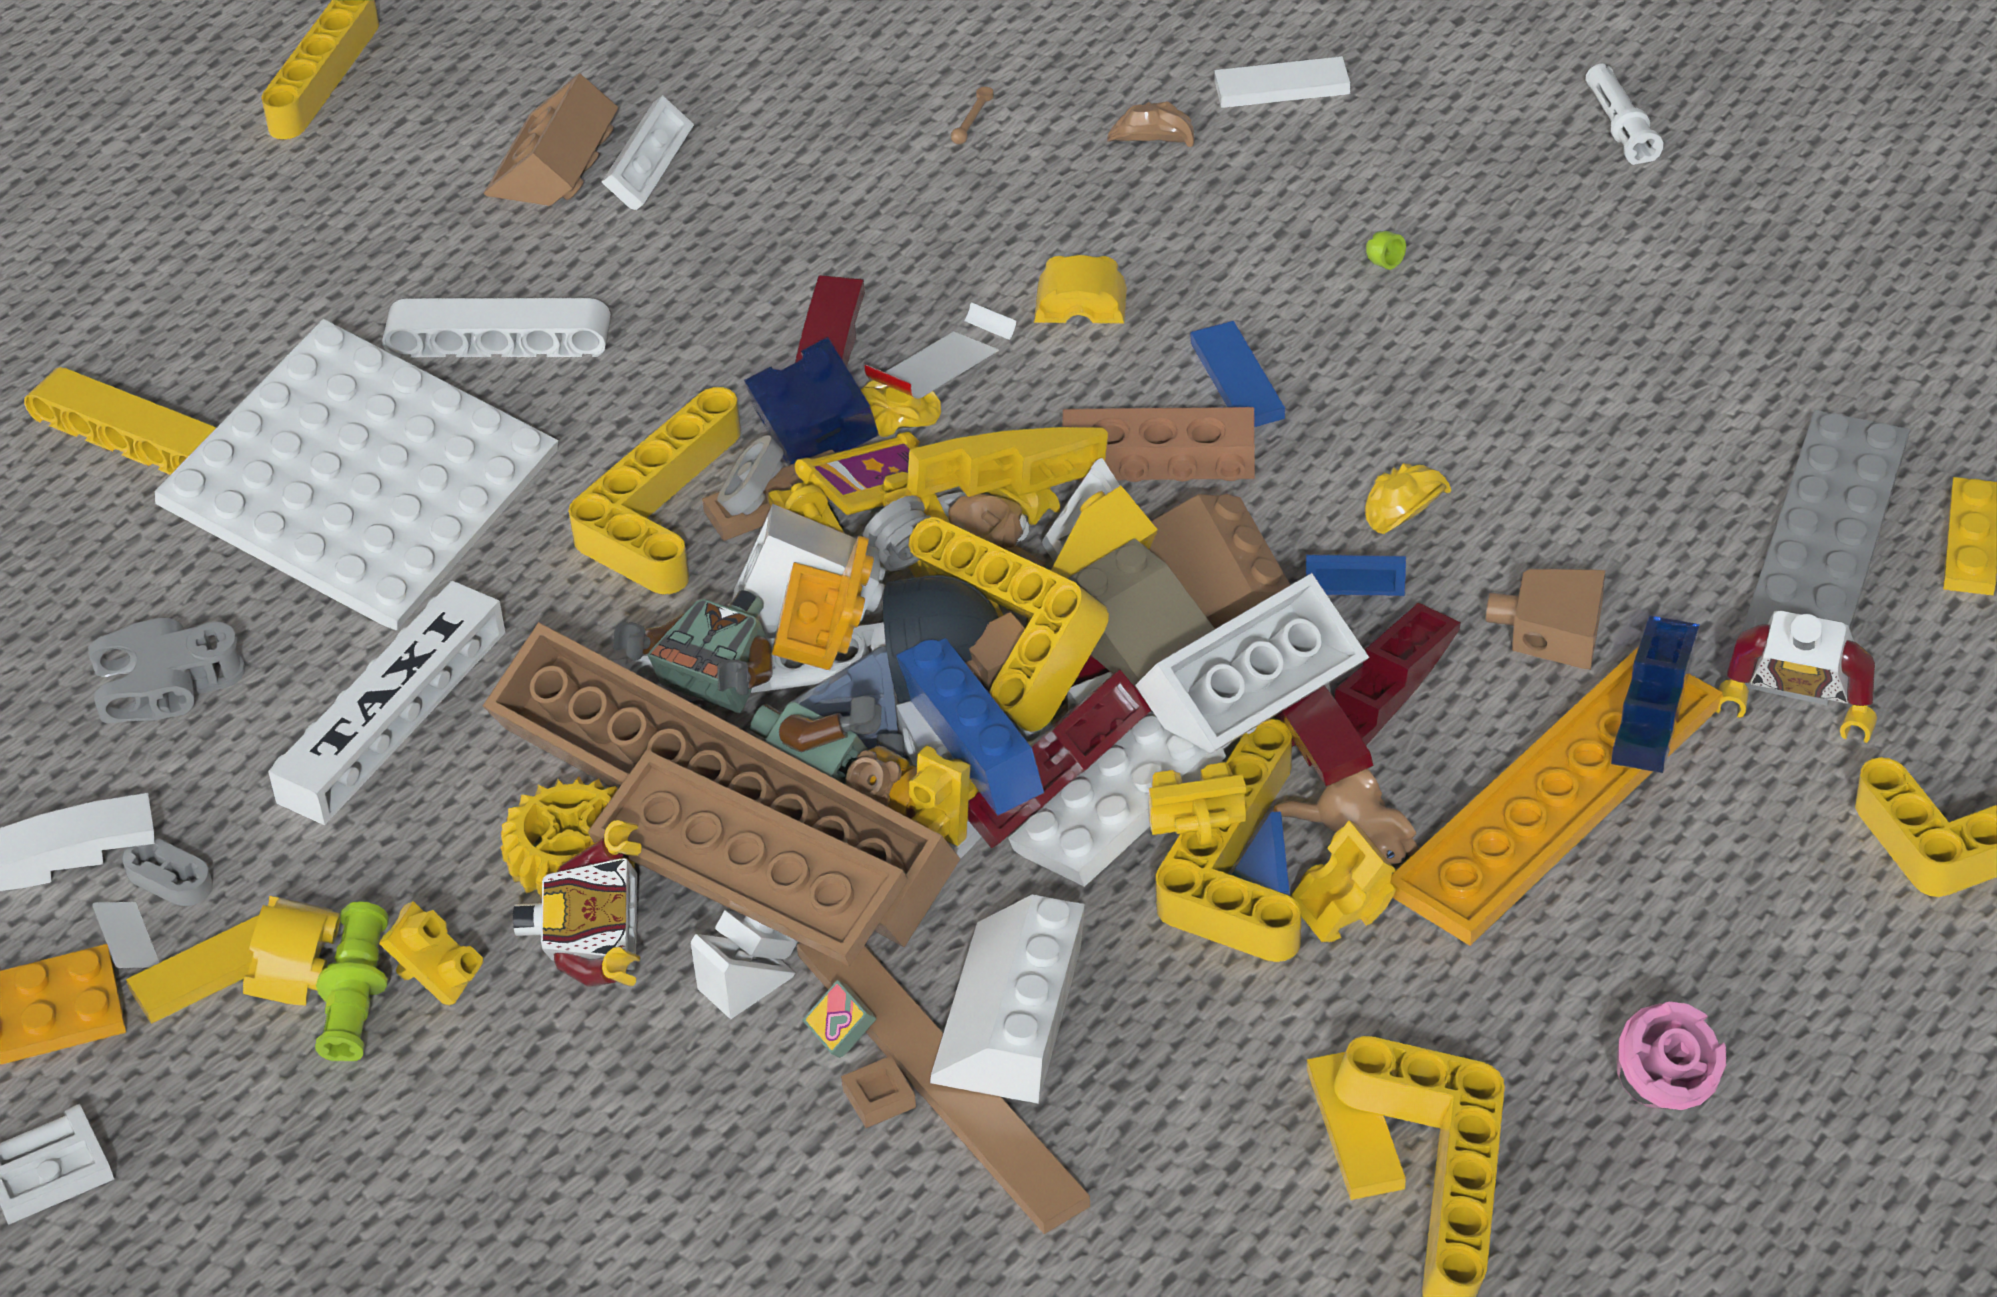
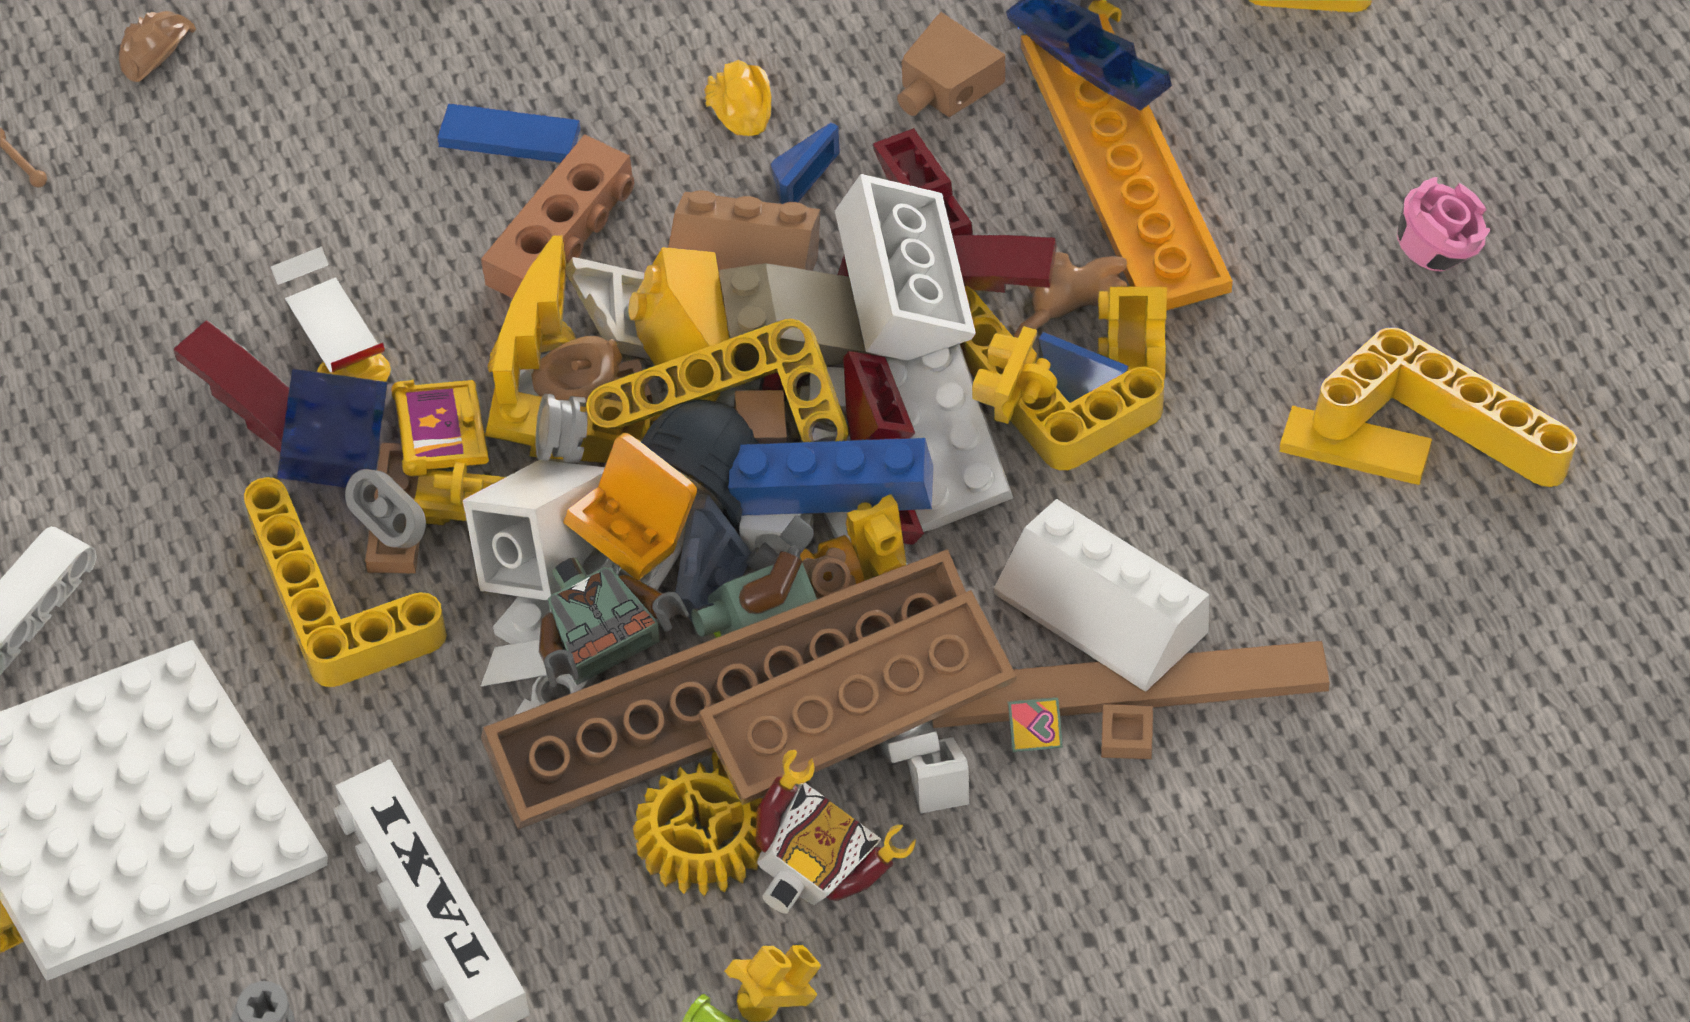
camera: 60 degrees left, 10 degrees up
(1081, 287) = (320, 189): yellow cylinder -> none

